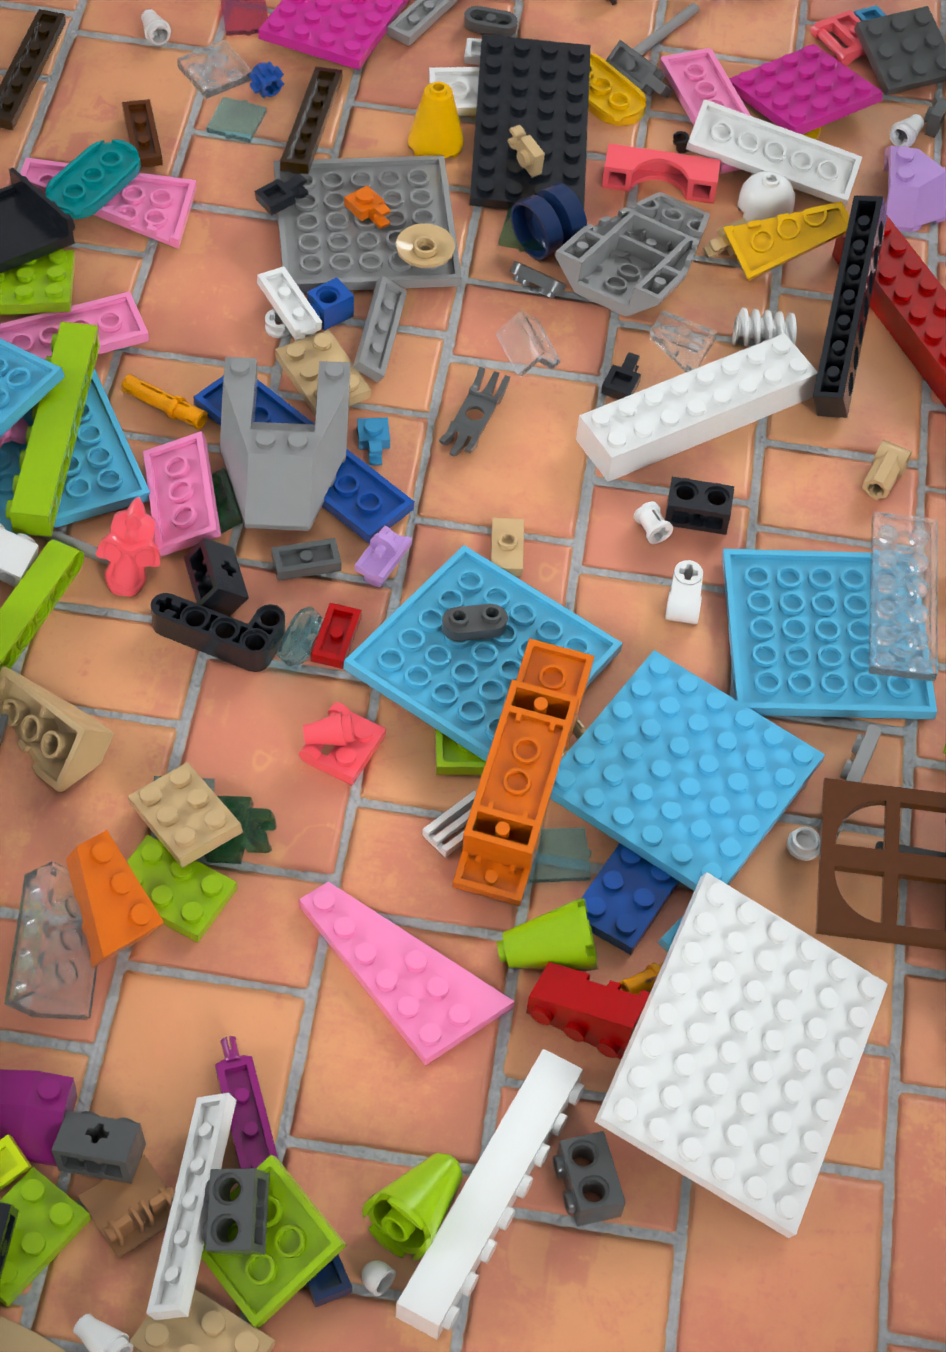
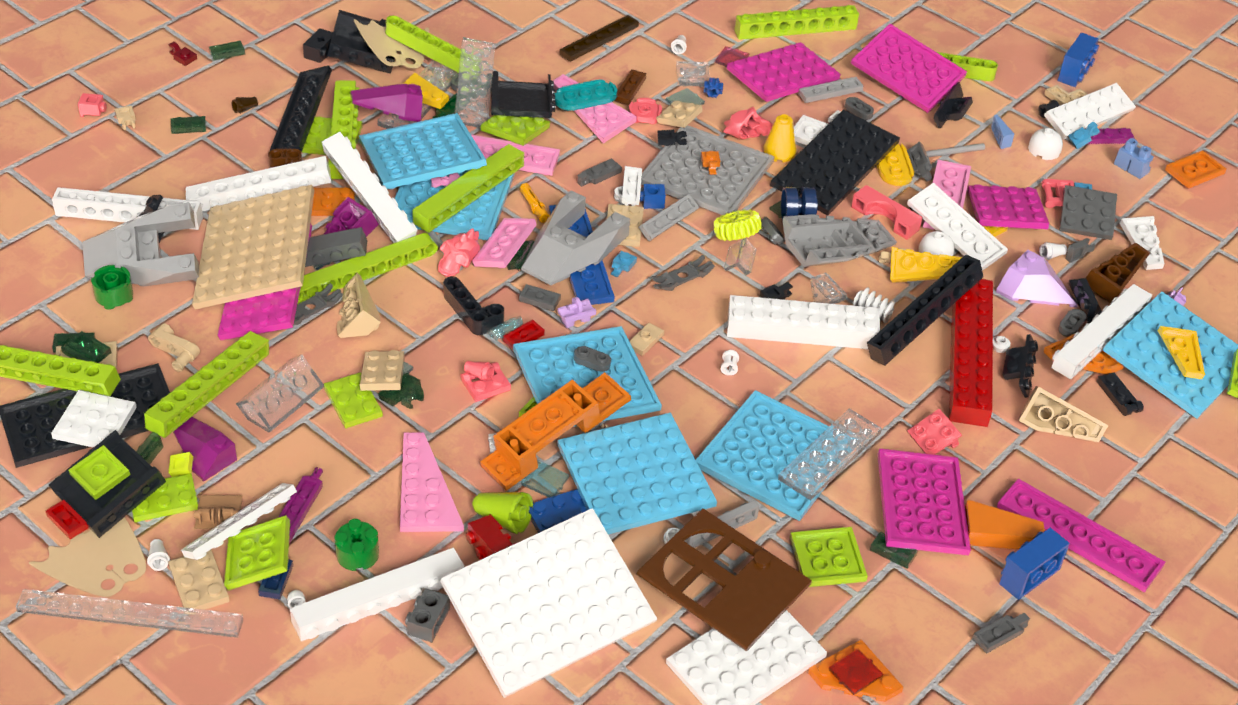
camera: 35 degrees right, 10 degrees down
(99, 1146) = (223, 479): dark grey brick -> none
(110, 898) = (314, 385): orange wedge -> none
(211, 161) = (649, 116): none -> coral plate
(215, 301) = (599, 172): none -> dark grey hinge
(216, 577) = (487, 283): black brick -> none
(247, 1210) = (251, 529): dark grey brick -> none
(255, 147) = (679, 114): none -> tan plate
(311, 121) = (718, 113): dark brown plate -> none
(367, 119) = (747, 124): none -> coral head
(396, 1111) = (357, 545): none -> green brick
(414, 1206) = (336, 574): lime cone -> none
(425, 245) = (722, 188): tan dish -> none
(492, 294) = (737, 225): none -> neon yellow gear
(528, 151) = (814, 170): tan plate -> none
(685, 593) = (715, 400): white piece -> none
(699, 505) = (761, 366): black brick -> none
(887, 465) = (886, 395): tan piece -> none

